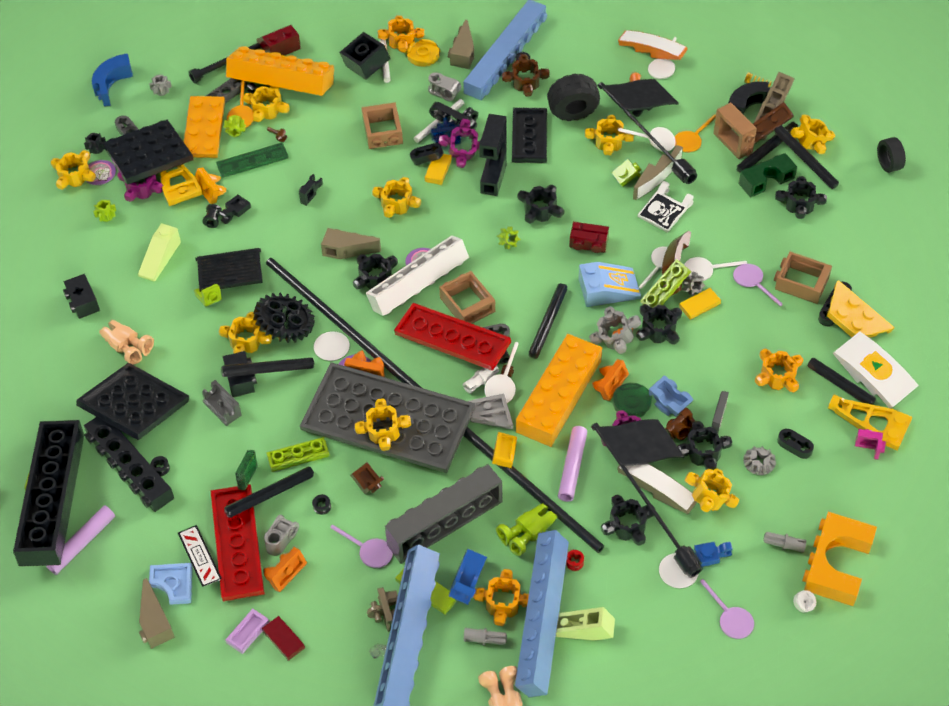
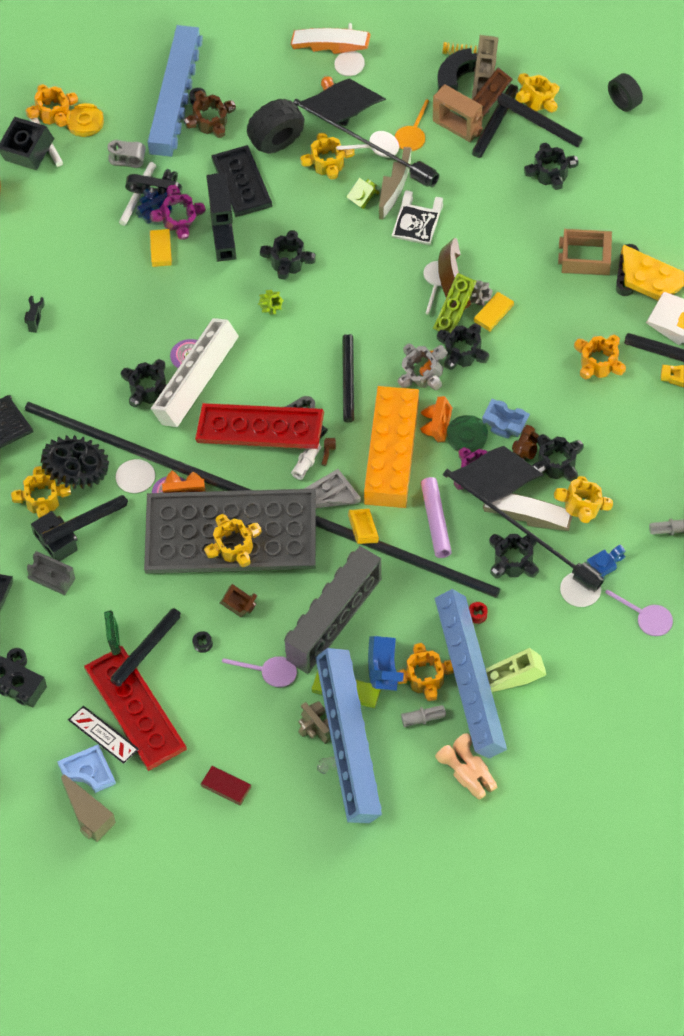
camera: 20 degrees left, 5 degrees up
(247, 631) = (186, 791): lavender tile -> none
(280, 532) = (176, 683): light grey piece -> none
(286, 569) = (200, 713): orange tile -> none
(297, 454) = (145, 606): lime tile -> none
(345, 244) = (102, 362): dark tan slope -> none
(381, 113) = (72, 204): medium nougat window -> none
(401, 206) = (133, 282): yellow piece -> none
(426, 153) = (142, 235): black beam -> none
(463, 48) = (129, 102): dark tan slope -> none
(474, 312) = (270, 394): medium nougat window -> none
(502, 383) = (330, 459): white piece -> none
(531, 524) = (419, 591): lime piece -> none
(589, 237) = (353, 275): dark red brick -> none
(607, 283) = (392, 320): light blue slope -> none
(705, 268) = (482, 271): white piece -> none
(720, 409) = (558, 414): dark grey tile -> none
(749, 276) = (532, 266): lavender piece -> none
(754, 179) = (516, 140): dark green arch -> none
(754, 465) = (615, 462): light grey gear -> none
(795, 443) = (643, 426): black beam -> none

